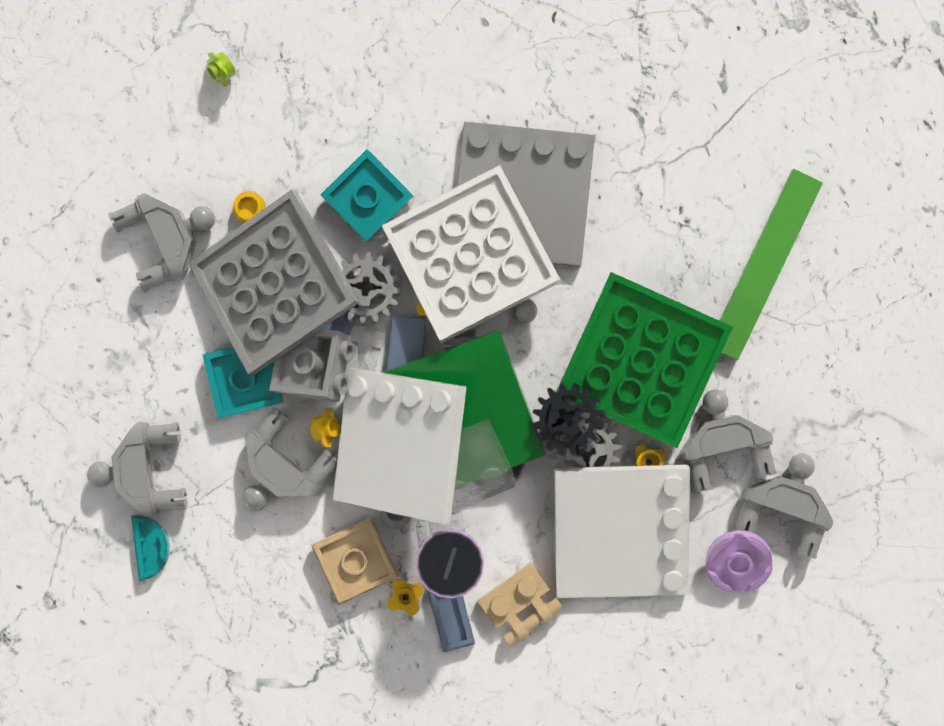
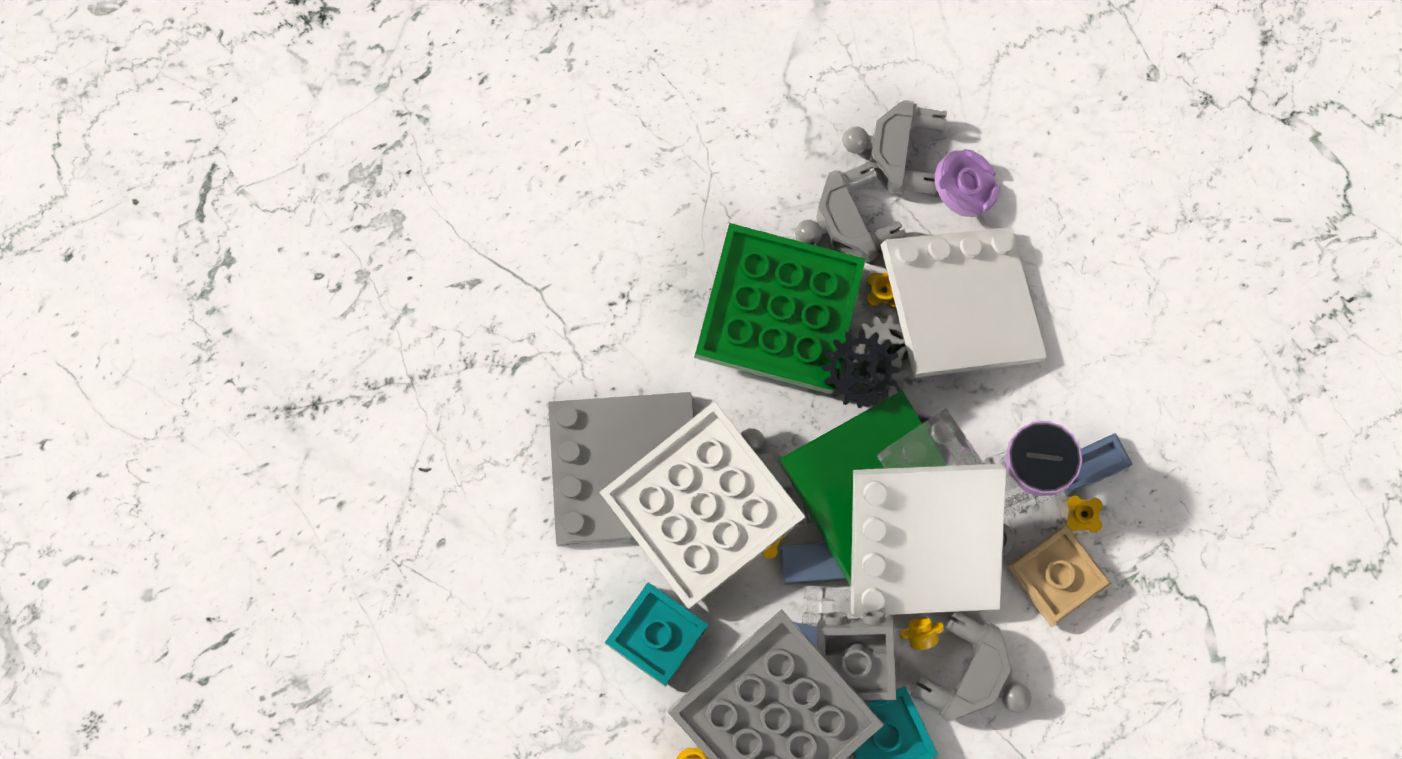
camera: 105 degrees left, 15 degrees down
(380, 288) = (746, 616): light grey gear -> none
(513, 596) = (1056, 403): tan plate -> none
(768, 259) = (646, 207): bright green tile -> none

